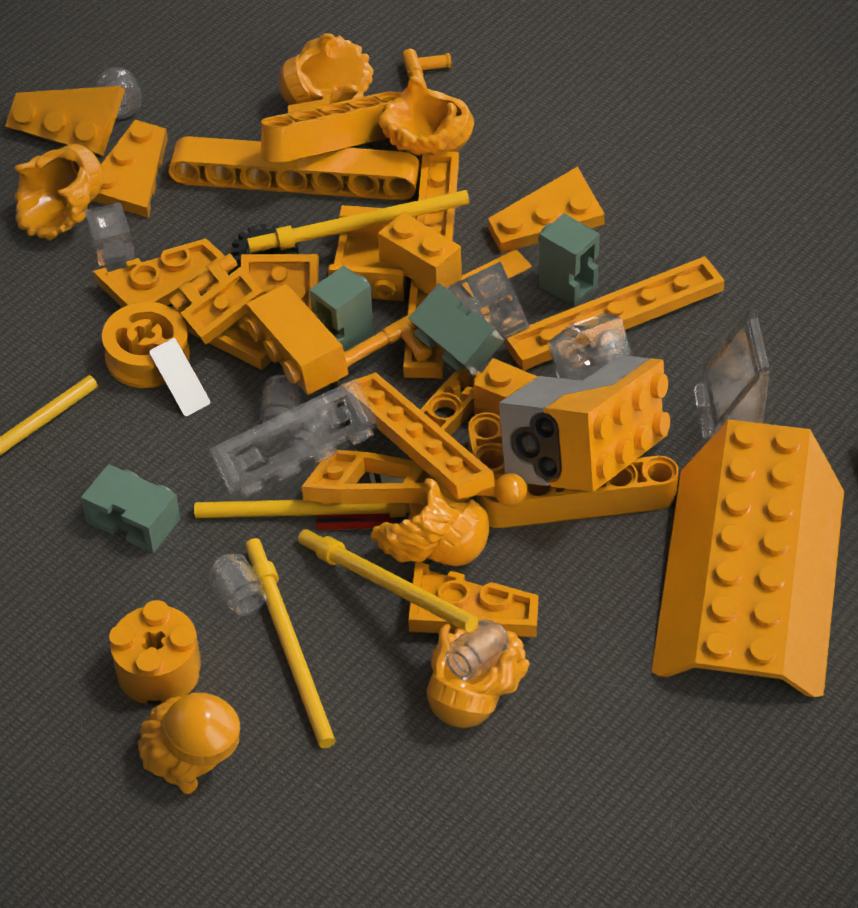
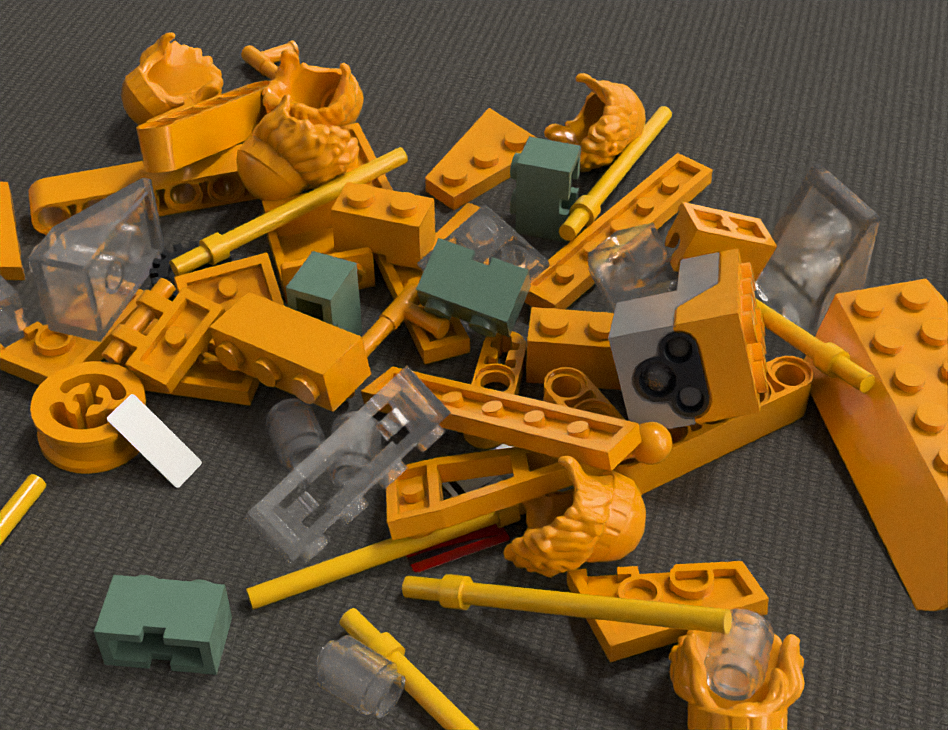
camera: 25 degrees left, 5 degrees down
(193, 225) = (97, 261): none -> clear slope
(369, 177) = (291, 154): none -> light orange hair
(596, 285) = (587, 206): none -> yellow bar
(660, 214) = (604, 125): none -> light orange hair
(682, 349) = (714, 230): none -> light orange hinge
(692, 466) = (826, 356): none -> yellow bar

